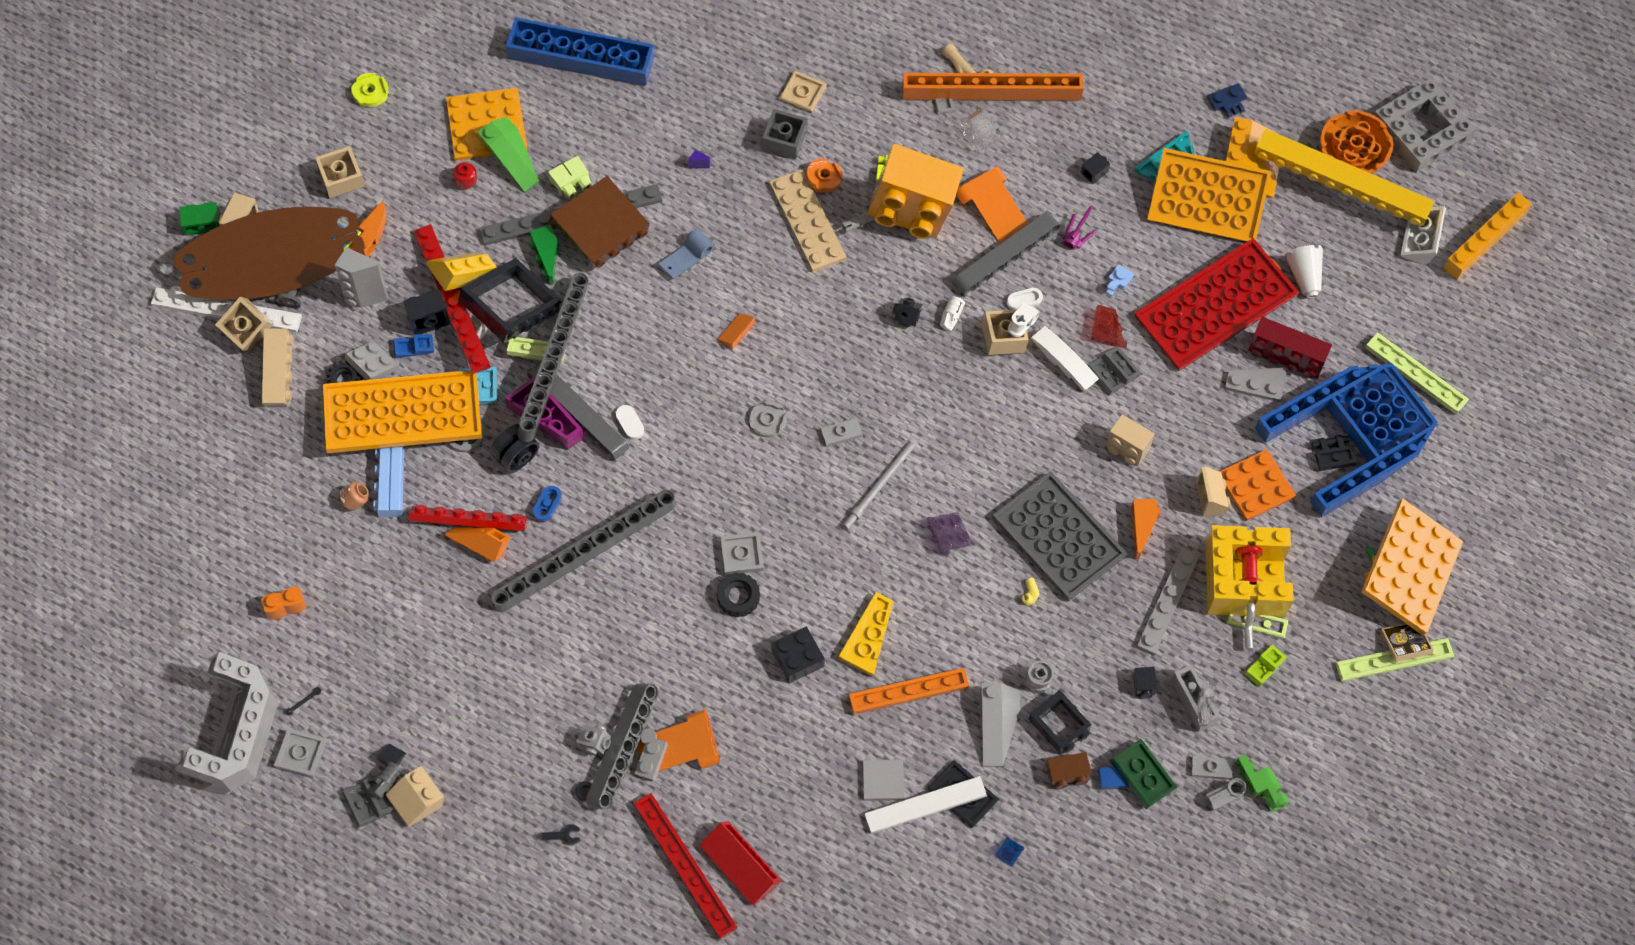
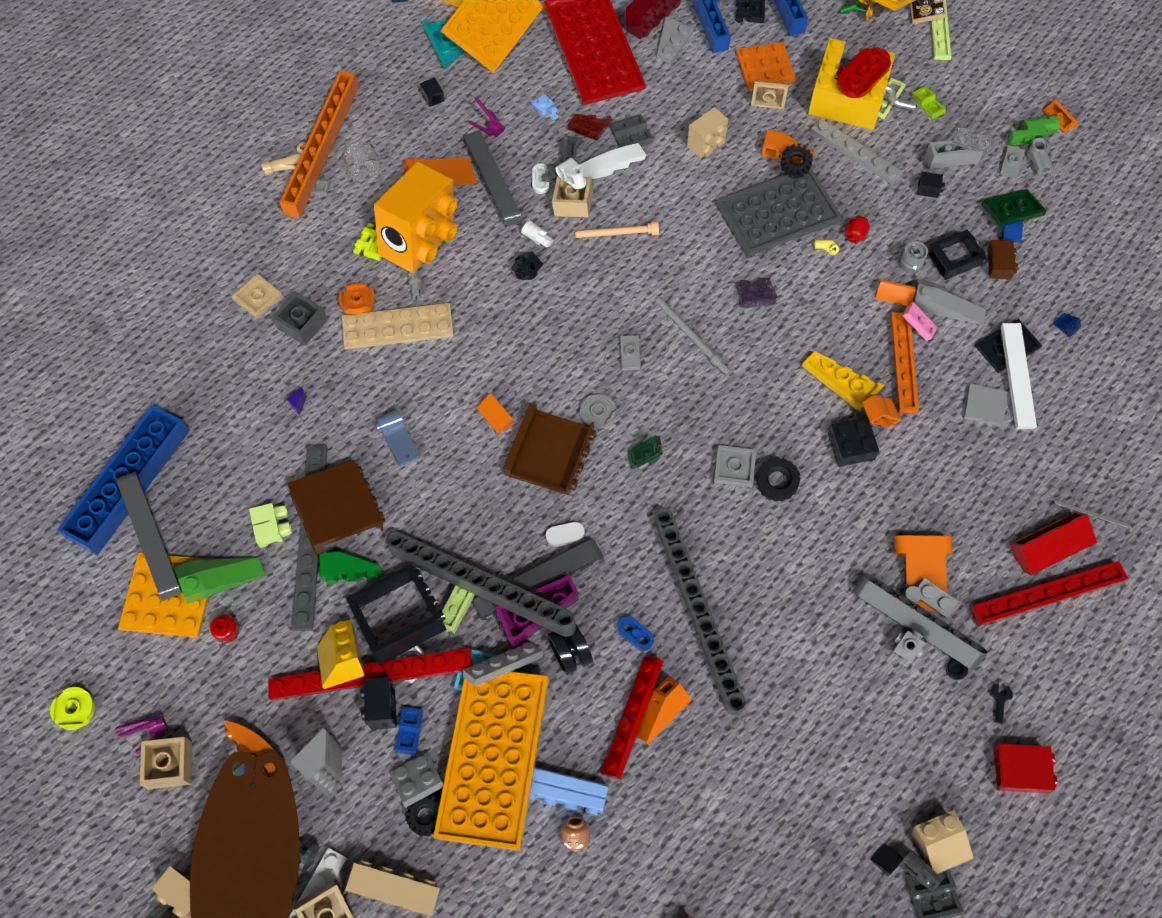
camera: 70 degrees left, 0 degrees up
(370, 154) = (153, 724): none -> magenta plant
(485, 397) = (502, 664): none -> light grey plate
(501, 861) = (1024, 768): none -> red brick
(530, 84) = (149, 536): none -> dark grey beam
(711, 385) = (549, 451): none -> reddish brown panel
(731, 469) = (646, 452): none -> clear green tile
(785, 899) = (1093, 514): none -> white sticker
(838, 672) = (881, 411): none -> orange brick
(959, 695) = (919, 321): none -> bright pink plate
(990, 666) = (895, 292): none -> orange slope
(994, 416) = (651, 228): none -> light nougat piece
(1059, 616) = (857, 229): none -> red head
(1060, 316) = (569, 150): none -> dark grey animal
(1116, 524) = (799, 151): none -> black tyre
(1247, 569) = (863, 72): none -> red tile
(1298, 813) = (1067, 121): none -> orange slope

